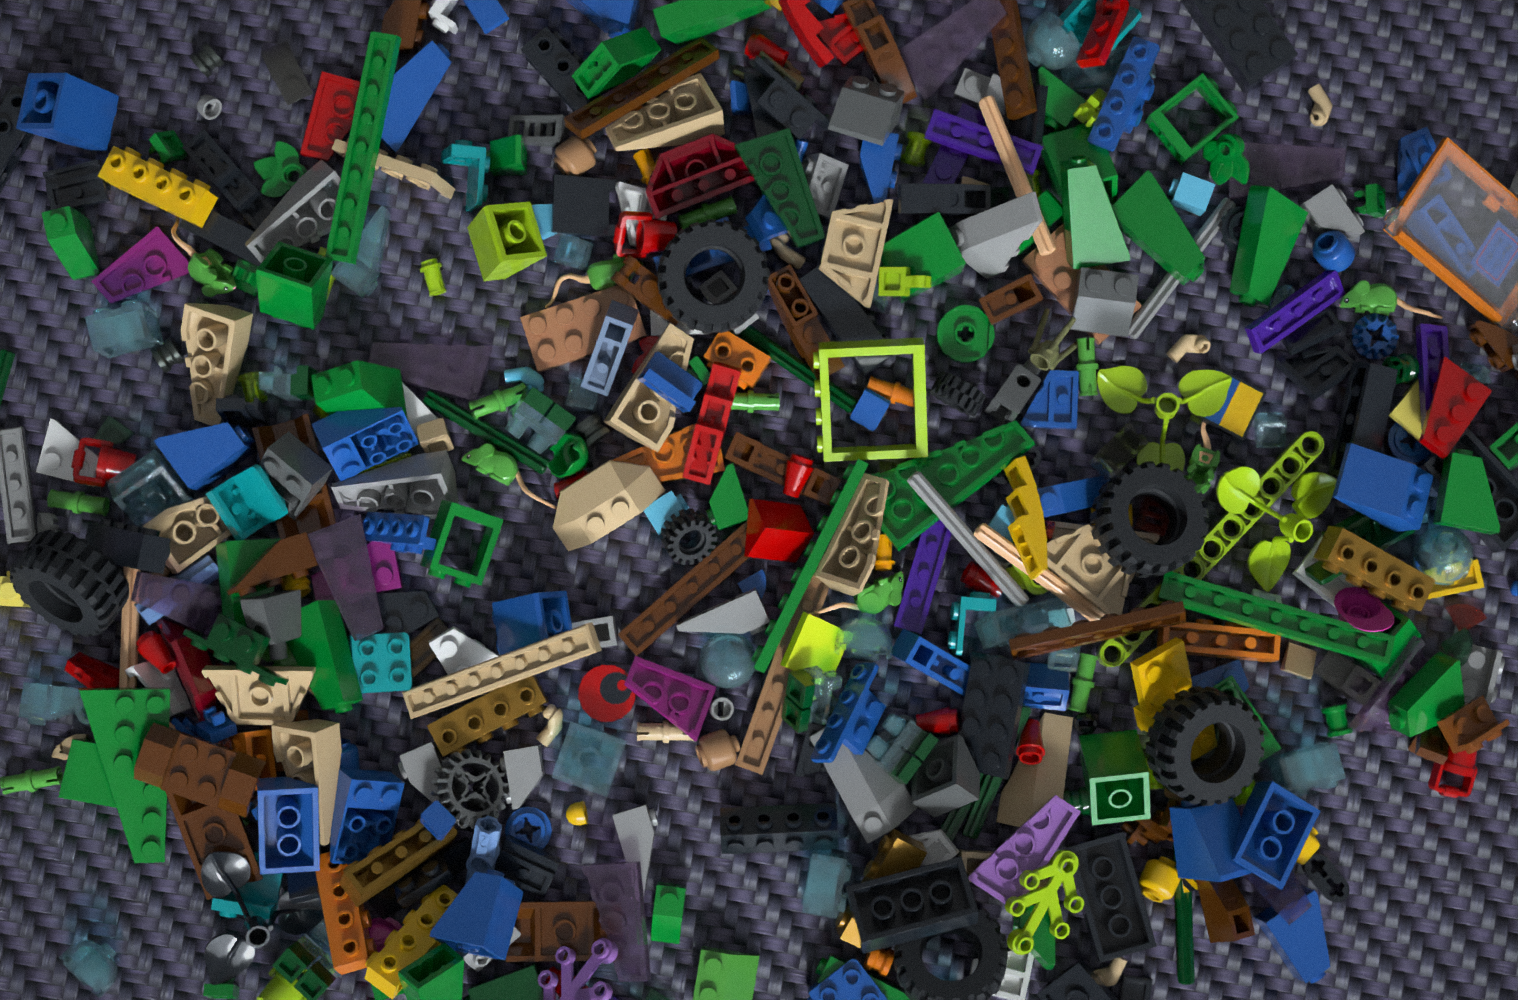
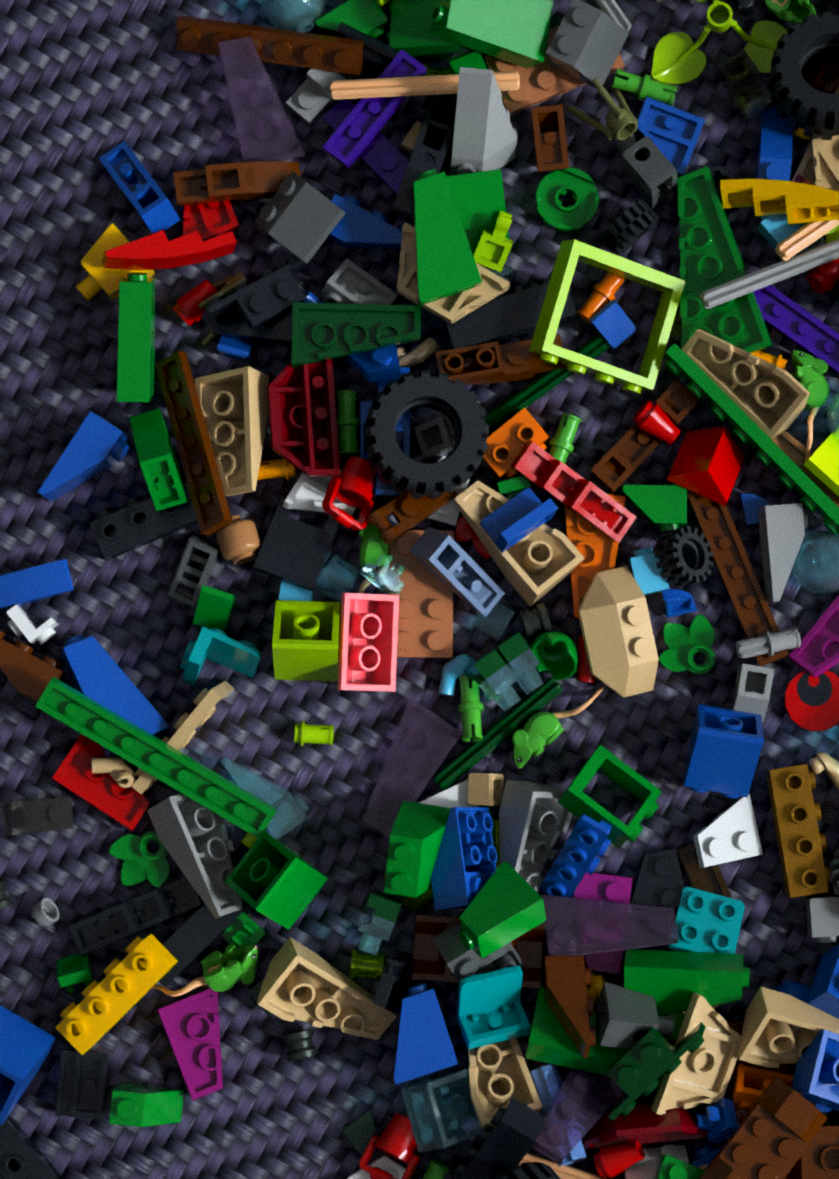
camera: 75 degrees left, 0 degrees up
(124, 329) = (259, 1080): clear light blue brick -> none
(324, 477) = (500, 912): none -> green slope
(343, 127) = (117, 768): none -> tan arm
(502, 670) = (765, 795): tan tile -> none
(522, 291) = (368, 642): none -> coral slope
(584, 286) = (382, 577): none -> clear light blue tile
(617, 564) = (685, 642): none -> green plate
(638, 633) = (768, 643): none -> light grey axle
(649, 546) = (677, 602): none -> blue tile
(879, 233) = (441, 245): none -> green slope
(915, 149) = (354, 183): clear neon green bush -> none

